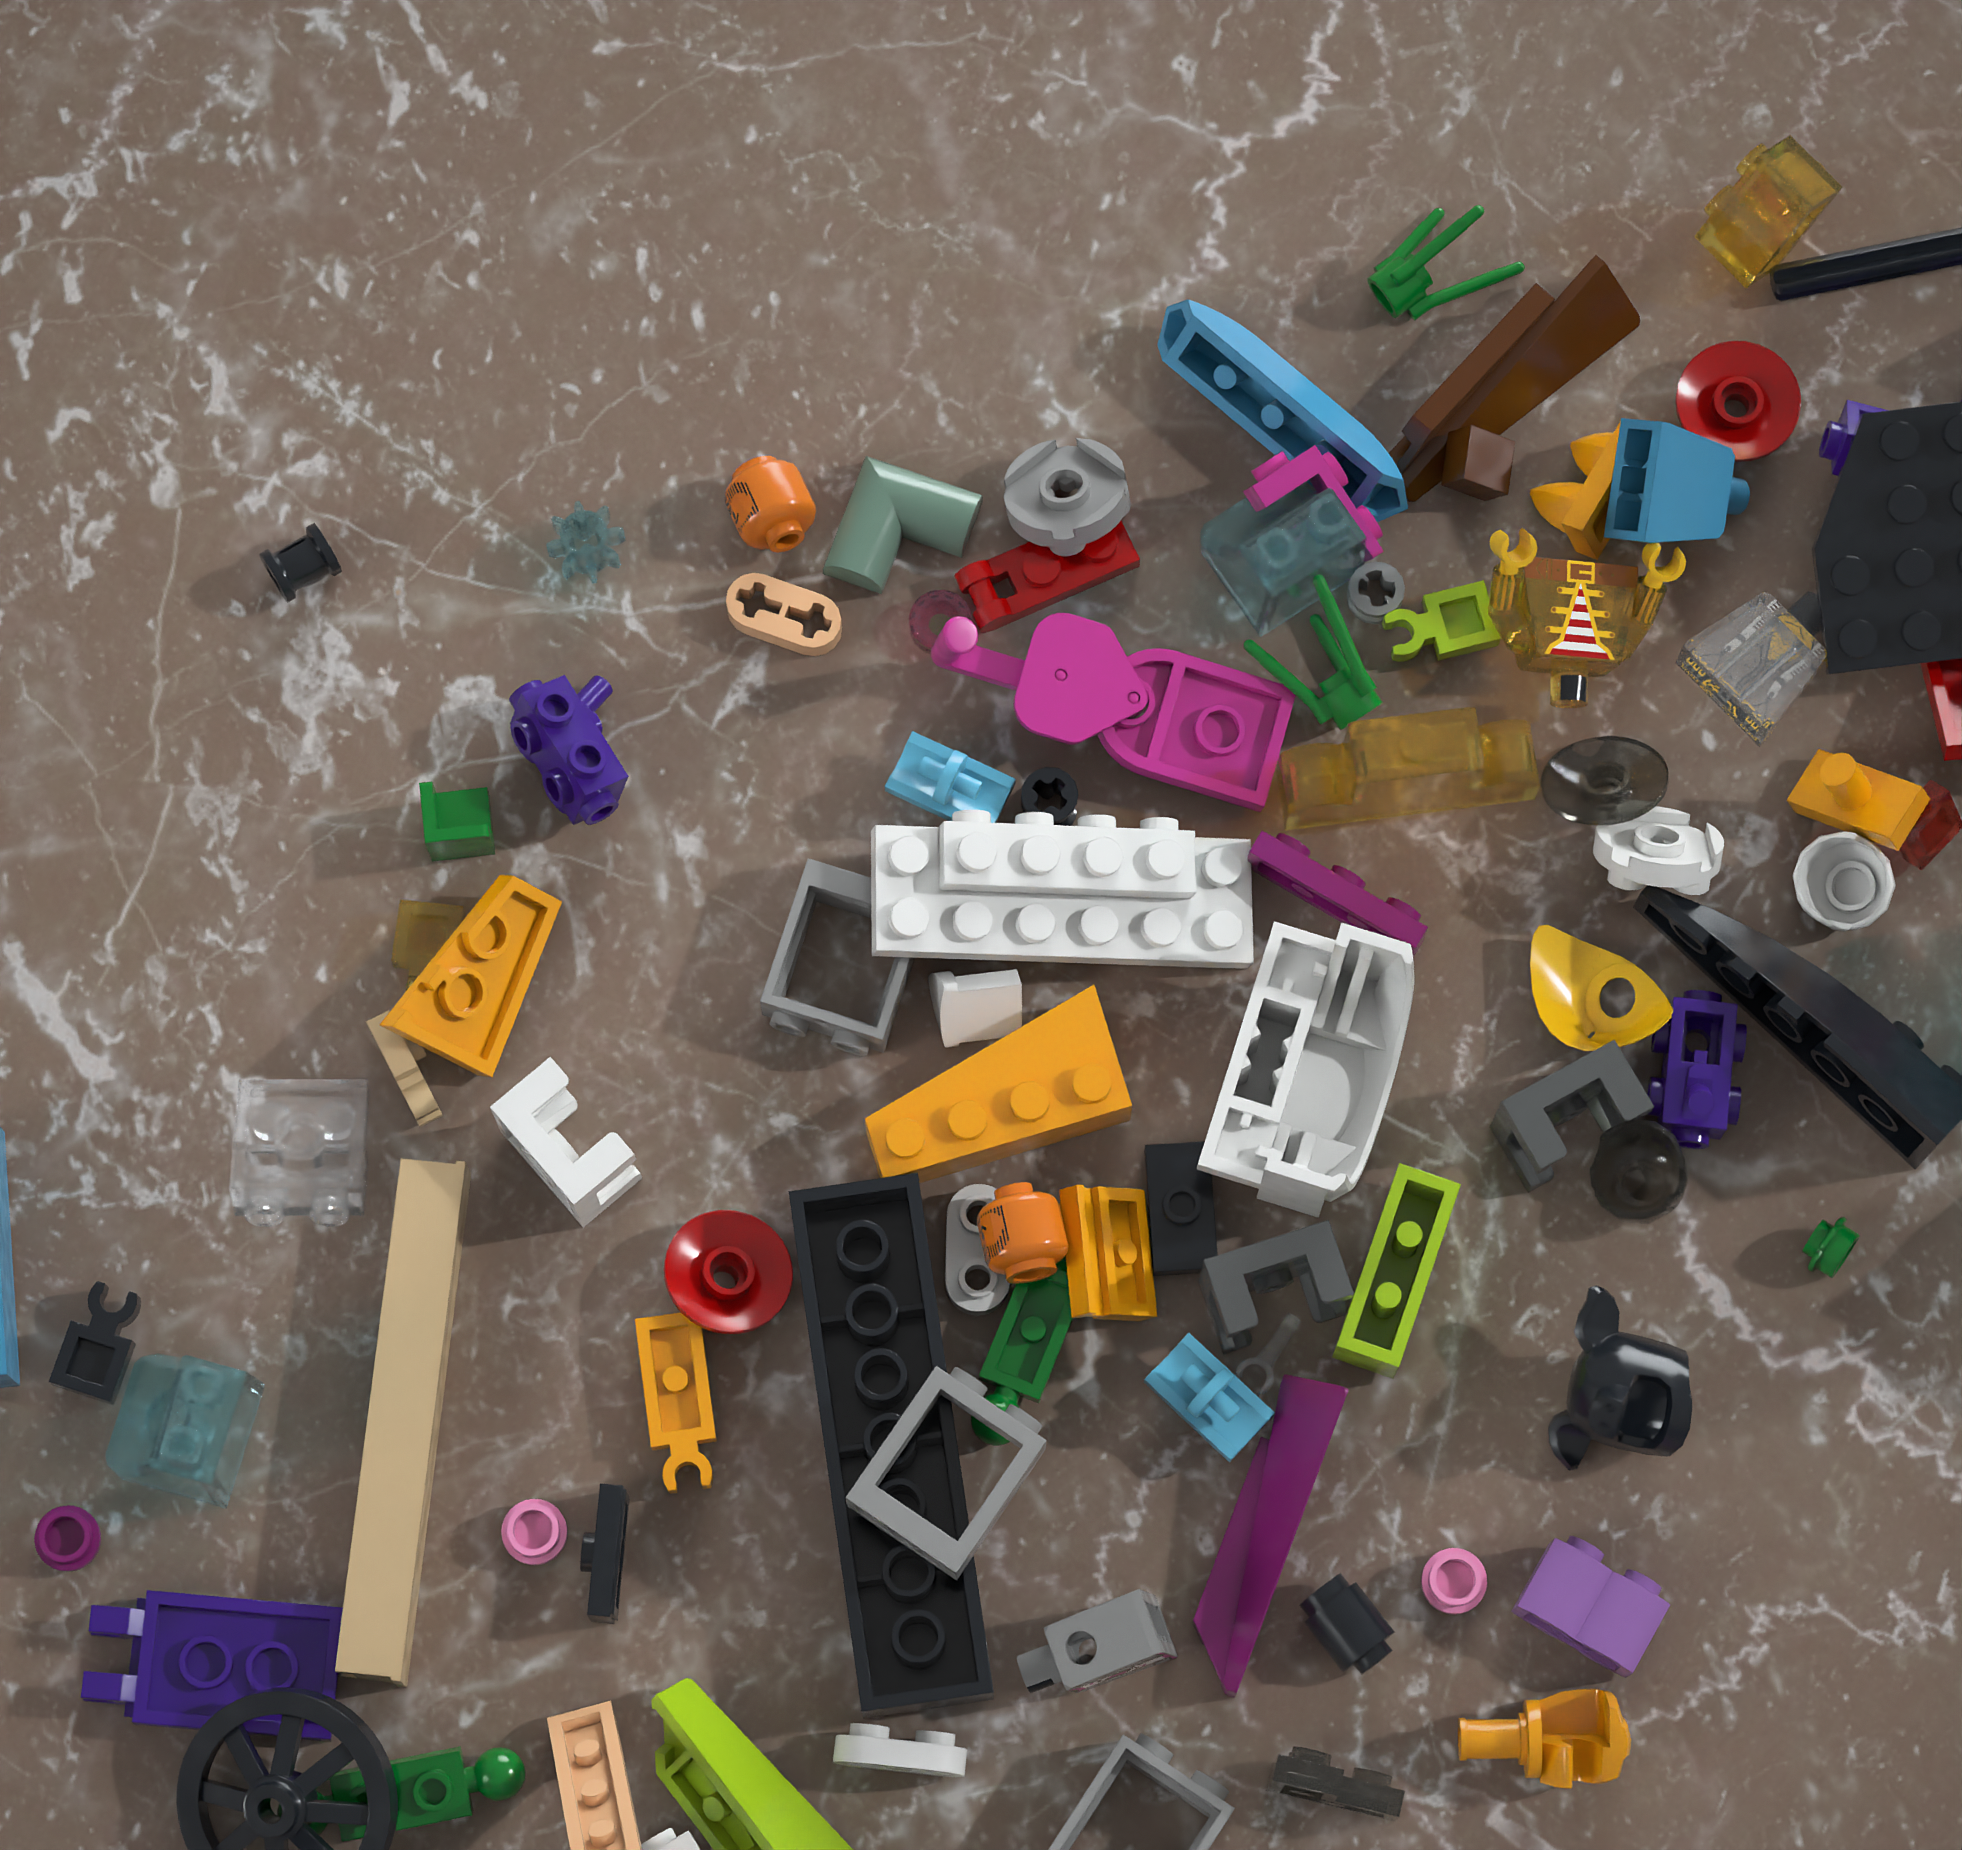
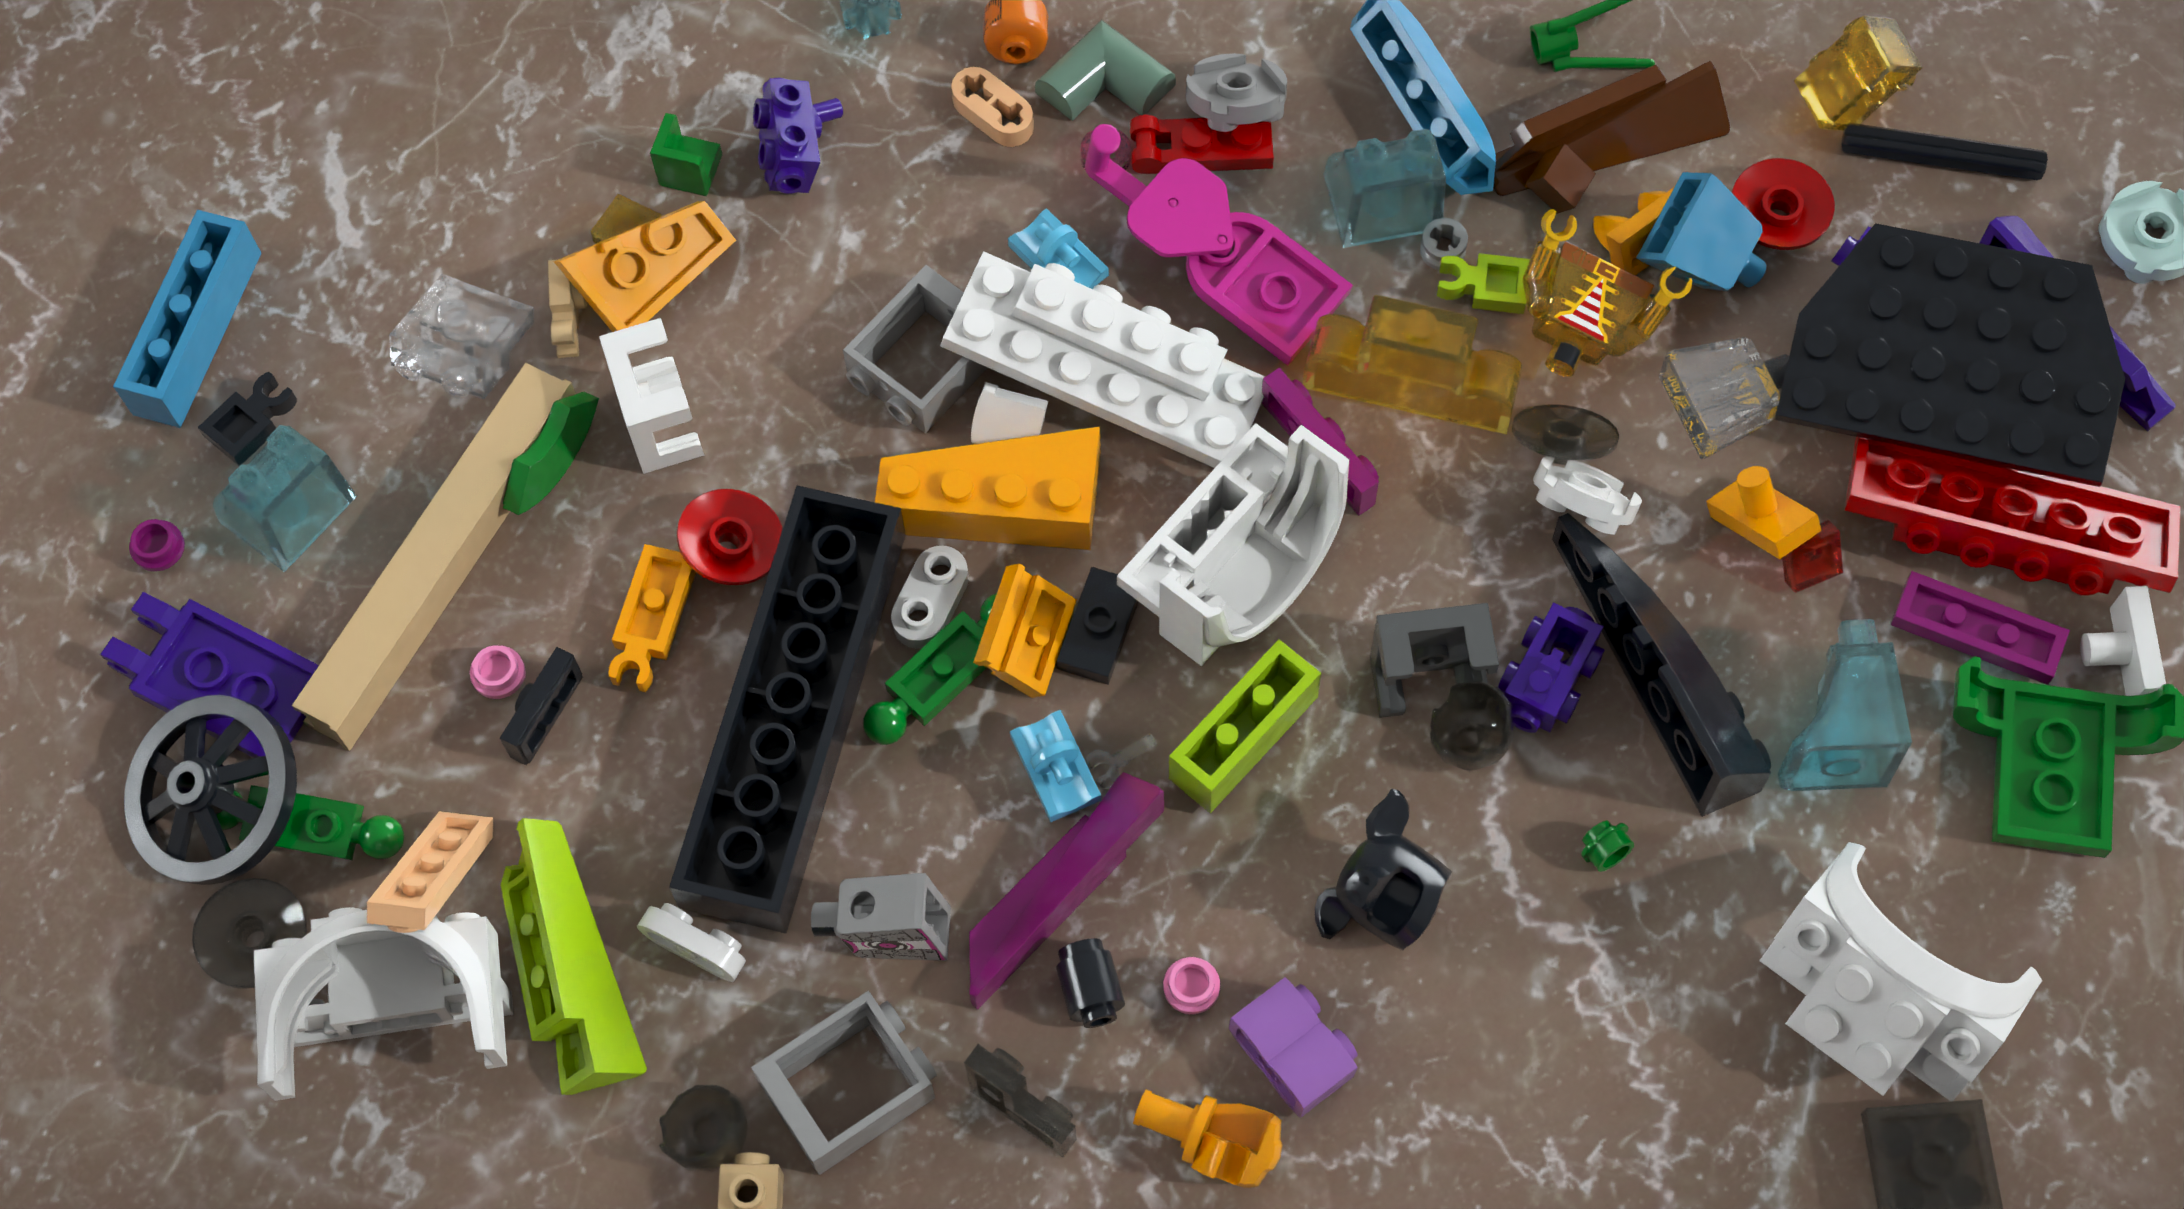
camera: 25 degrees right, 10 degrees down
(474, 1251) = (551, 454): none -> green tile
(911, 1528) = (838, 767): light grey window -> none
(1022, 1233) = (962, 585): orange head -> none
(1046, 783) = (1132, 284): black bush -> none
(1267, 1267) = (1141, 682): dark grey panel -> none
(1280, 476) = (1399, 120): dark pink bracket -> none
(1347, 692) = (1397, 283): green plant -> none
(1568, 987) = (1480, 568): yellow piece -> none
(1843, 881) = (1727, 571): white hair -> none

